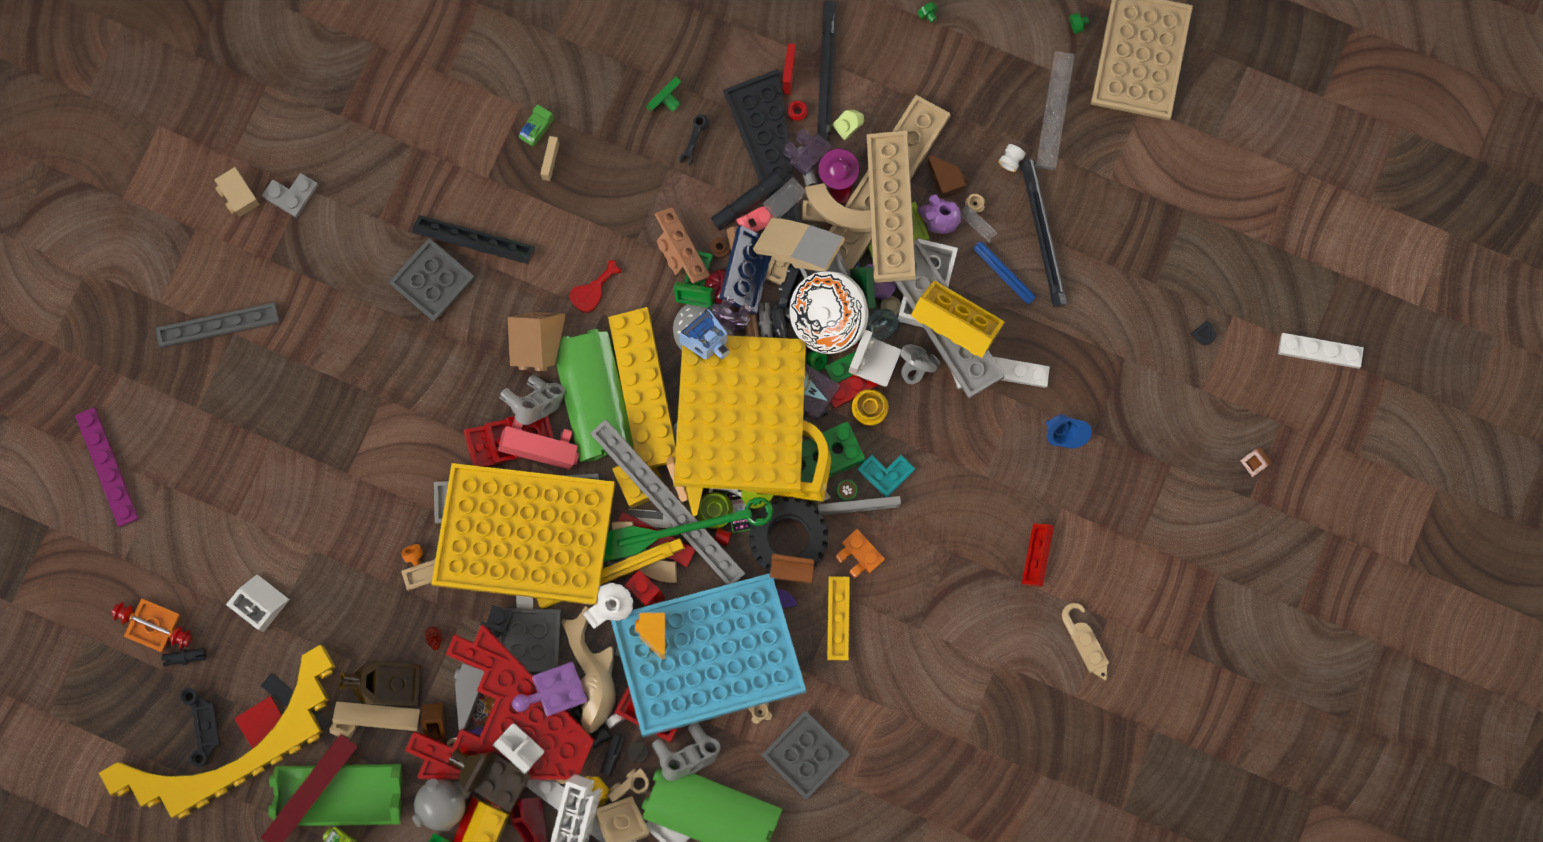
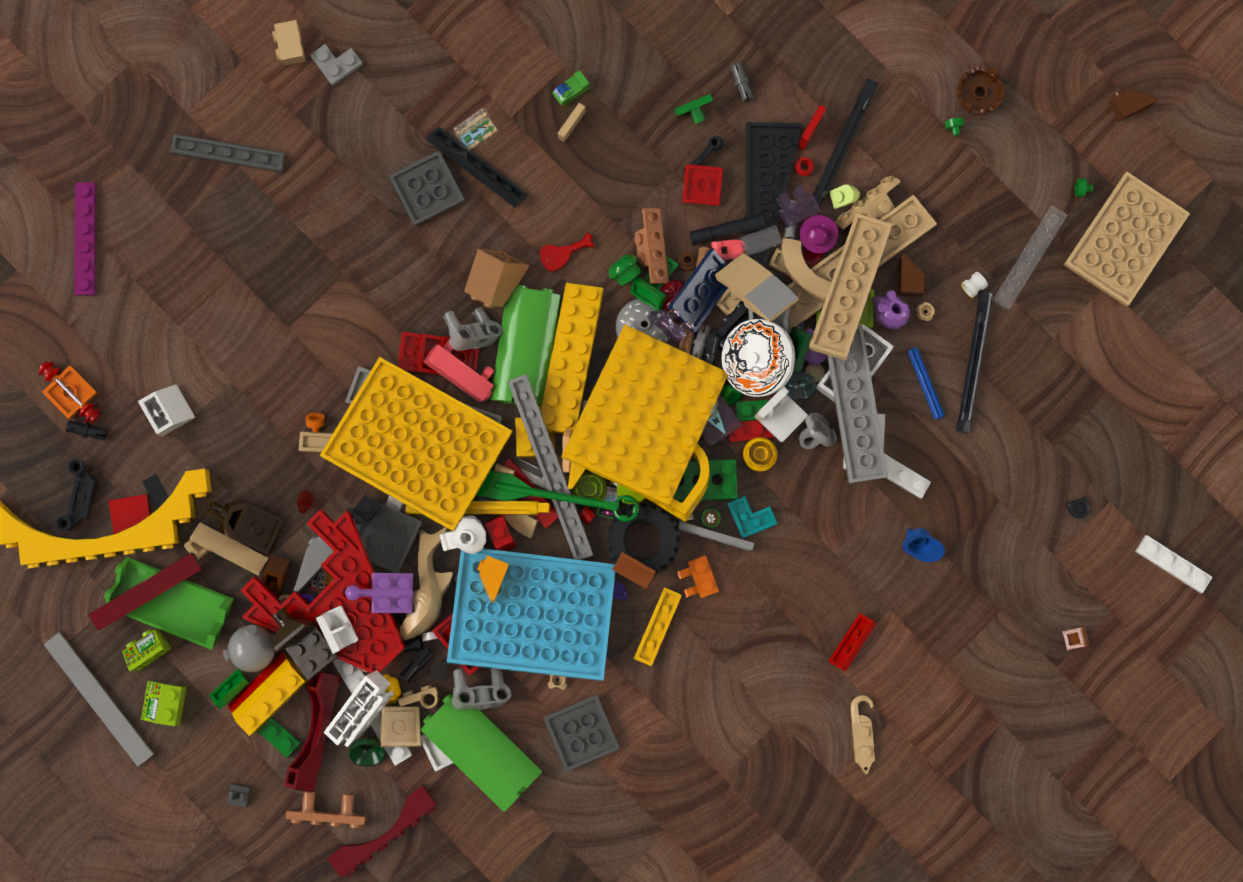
camera: 15 degrees right, 5 degrees up
(456, 203) = (475, 129): none -> clear panel
(661, 280) = (624, 269): none -> green piece
(702, 53) = (741, 82): none -> dark grey pin
(704, 168) = (702, 184): none -> red tile
(705, 337) = (642, 336): torso -> none
(882, 119) = (873, 205): none -> tan bracket
(957, 319) = (867, 410): yellow slope -> none
(978, 224) = (921, 331): clear tile -> none

